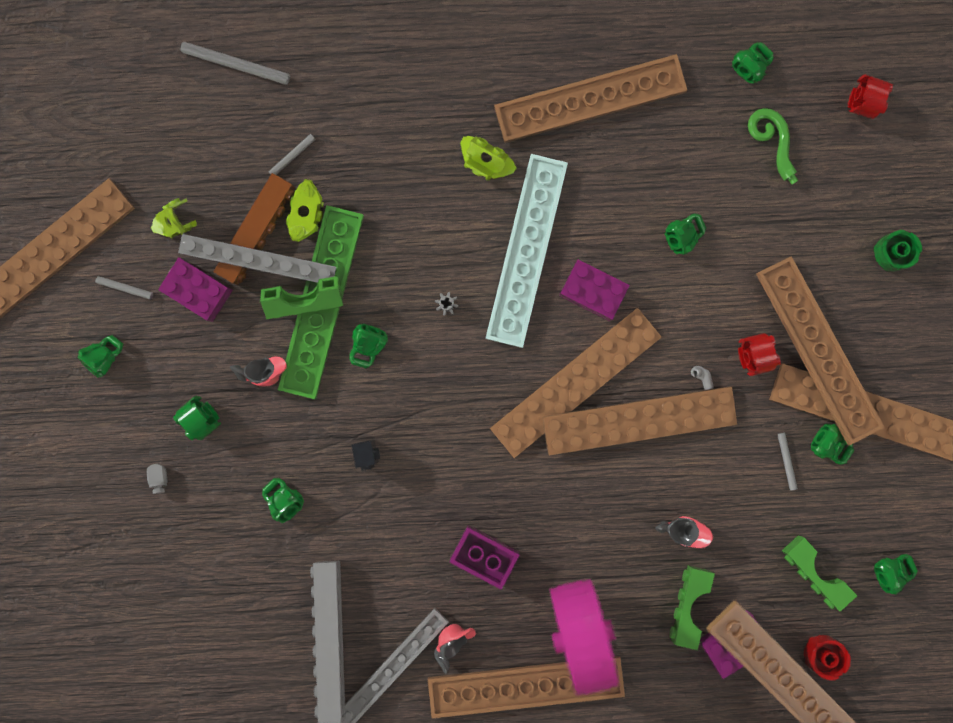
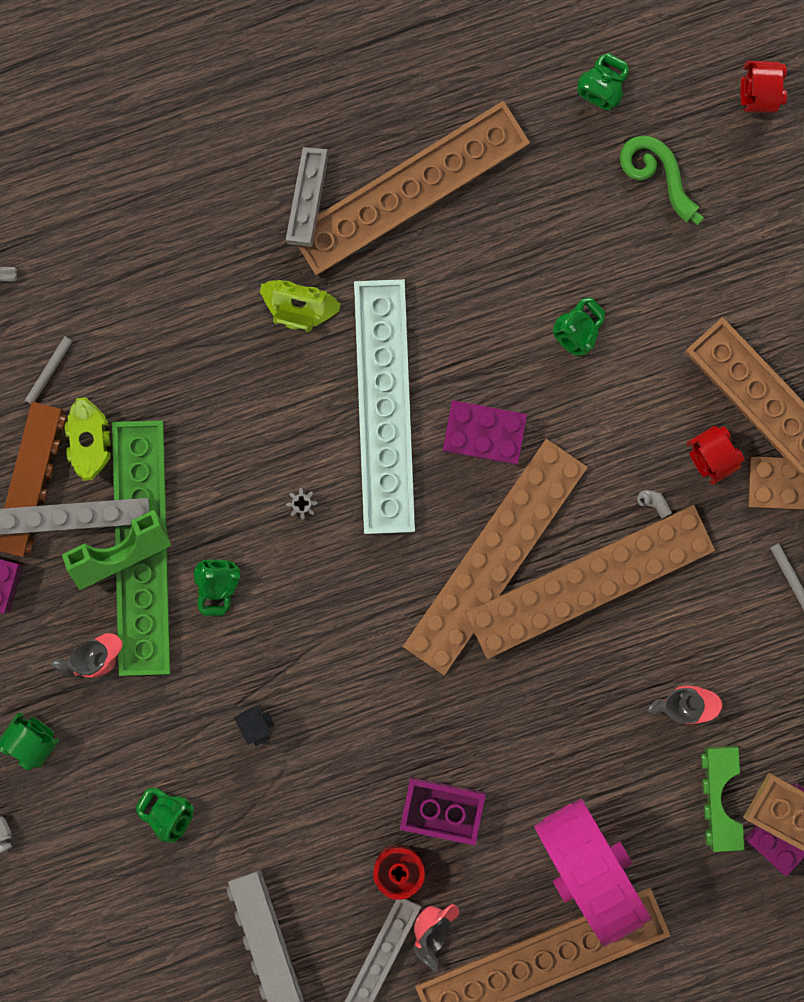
camera: 20 degrees left, 0 degrees up
(444, 602) = (387, 881): none -> red brick
(514, 82) = (307, 196): none -> light grey plate

